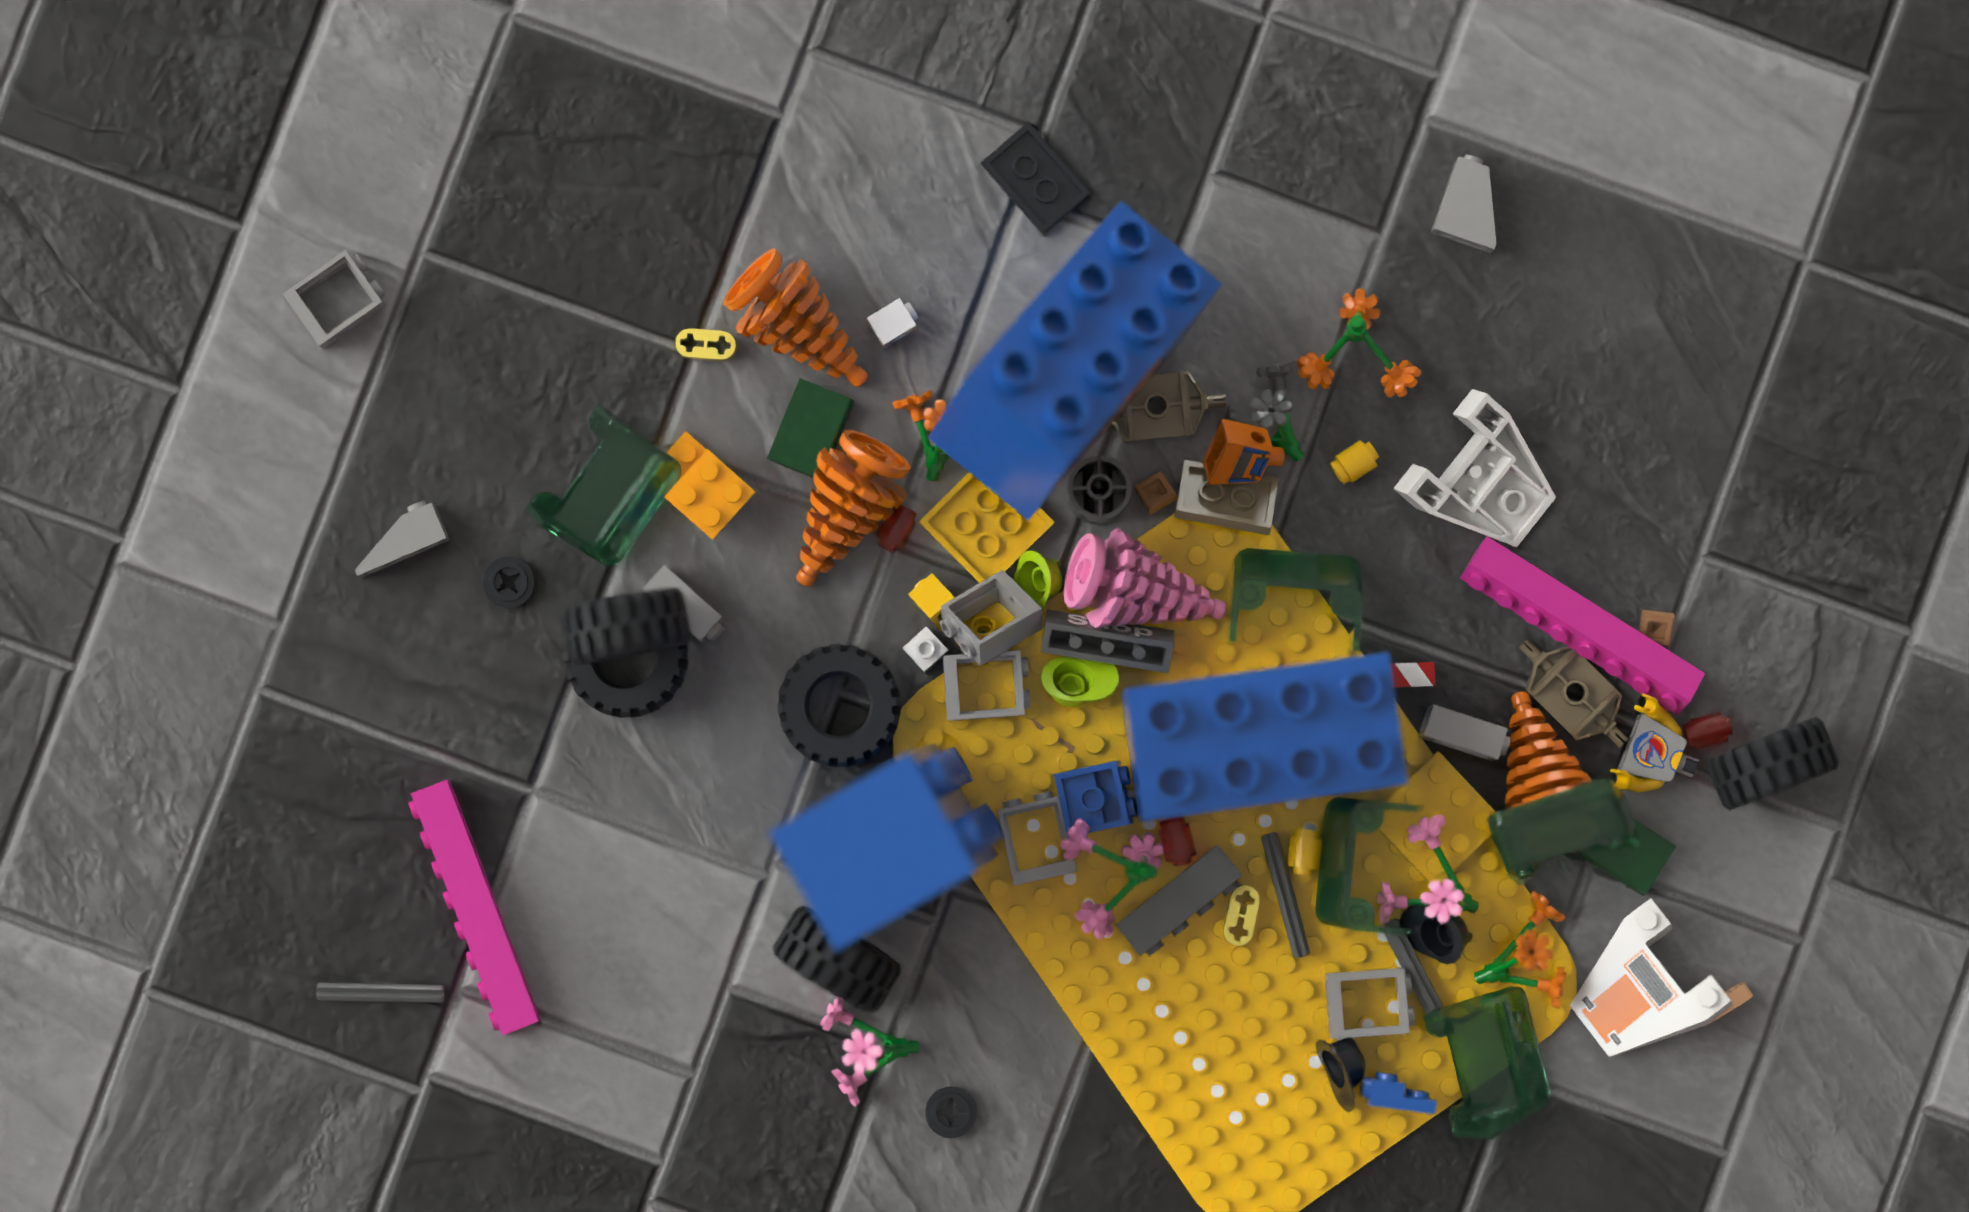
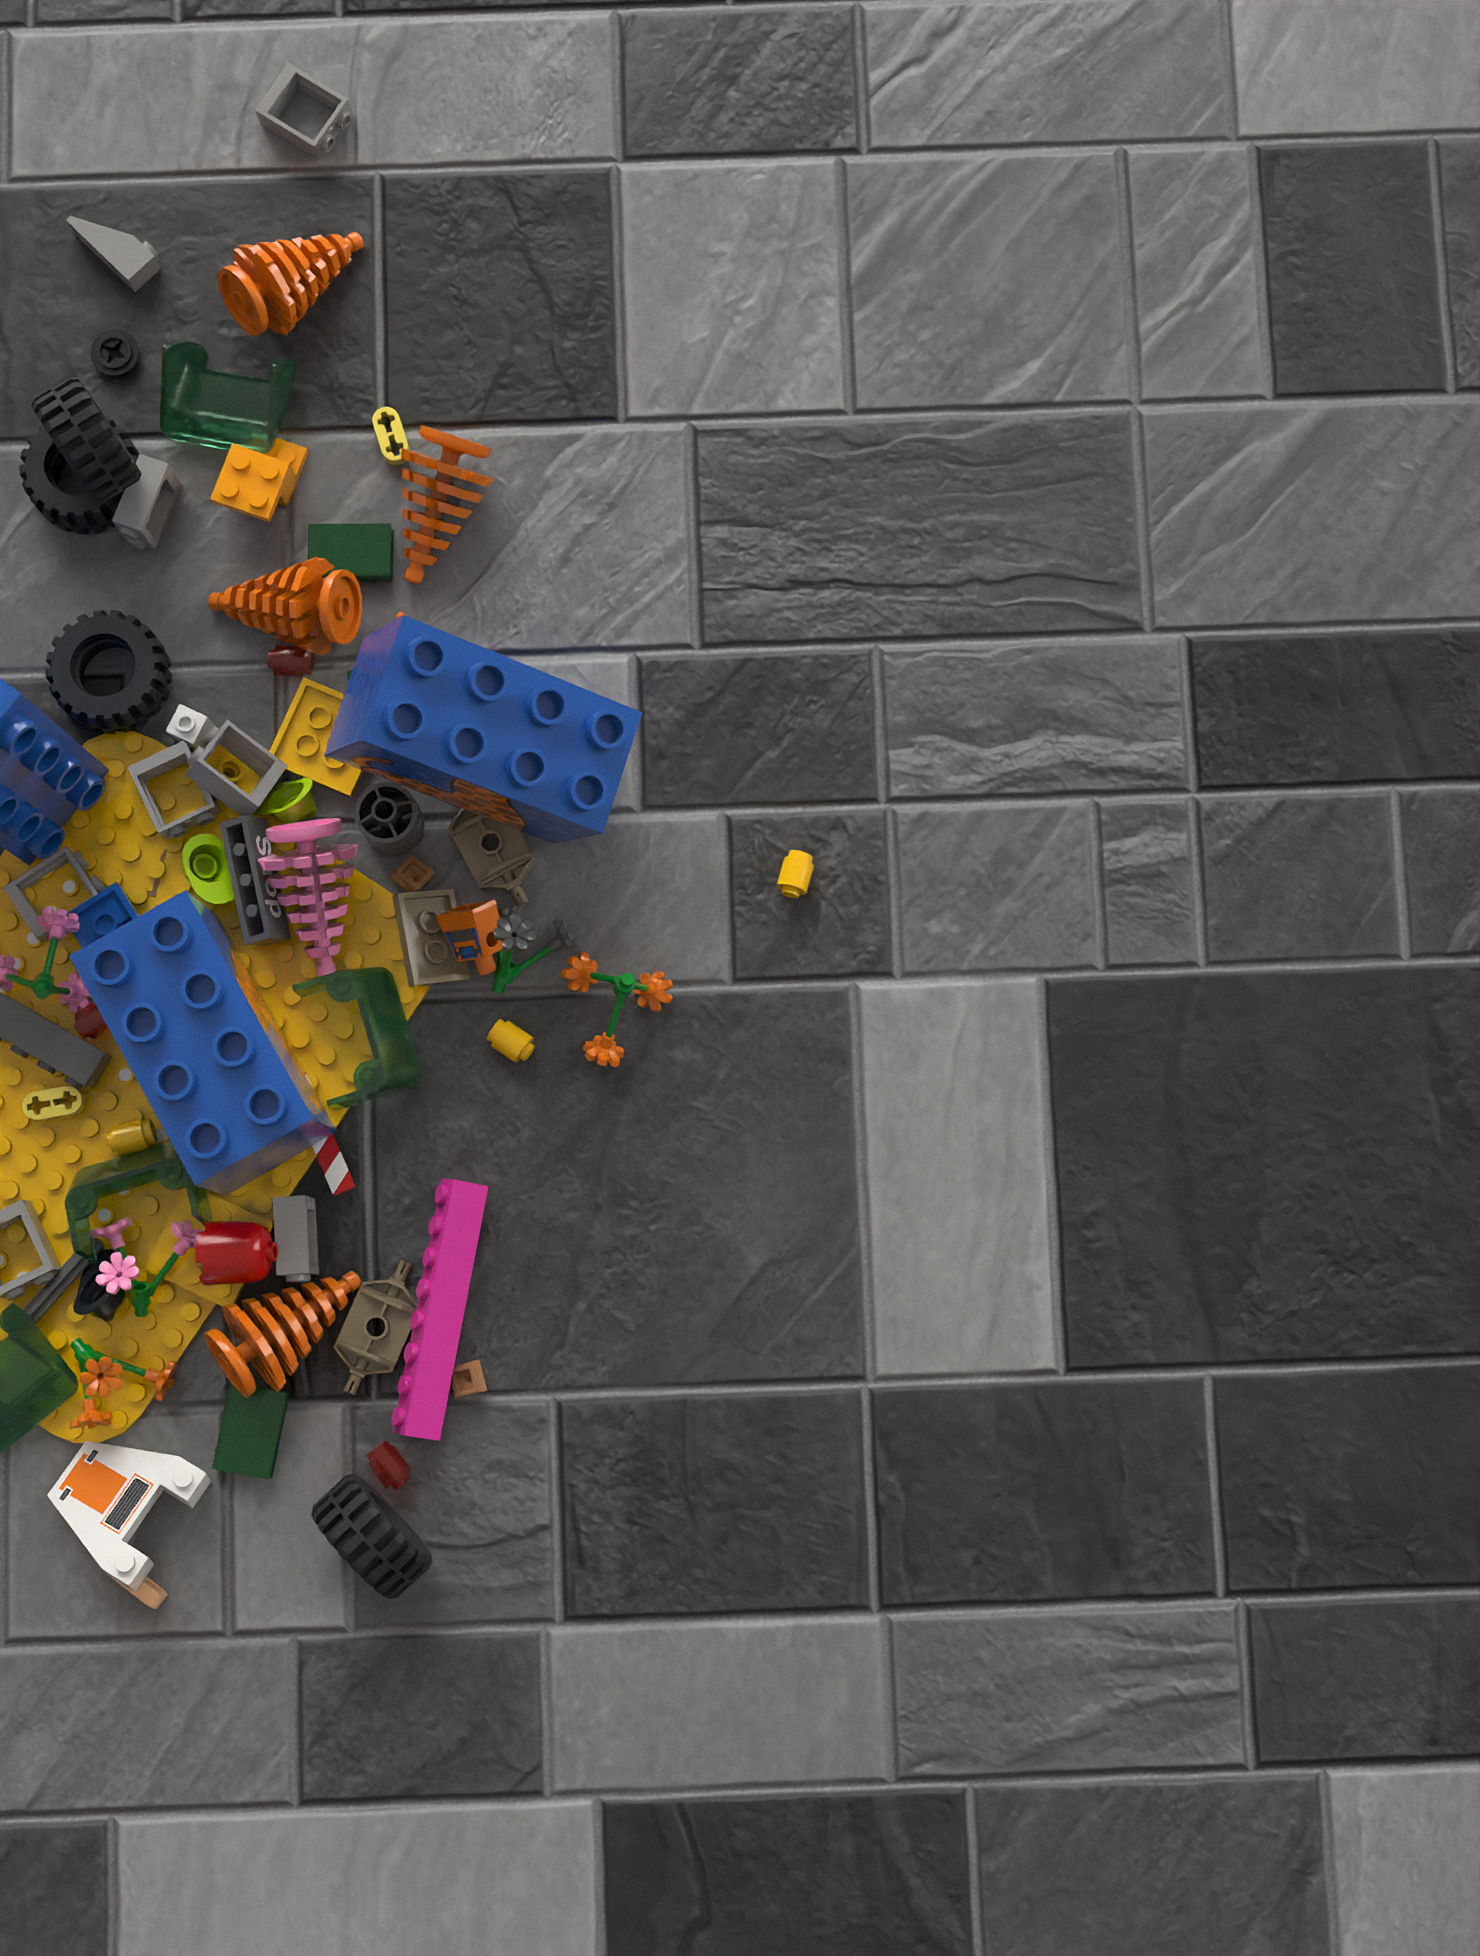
camera: 70 degrees right, 5 degrees down
(511, 386) = (280, 279): none -> orange plant
(893, 322) = (473, 585): white brick -> none
(929, 596) = (239, 711): yellow brick -> none
(1035, 178) = (655, 659): black tile -> none
(1285, 895) = (87, 1136): dark grey axle -> none
(1302, 130) = (795, 874): none -> yellow brick
(1463, 787) = (234, 1252): none -> red cylinder
(1467, 206) = (787, 1048): light grey slope -> none
(1490, 483) = (540, 1173): white wedge -> none
(1562, 825) = (235, 1363): clear green windscreen -> none
(1653, 751) = (347, 1422): torso -> none

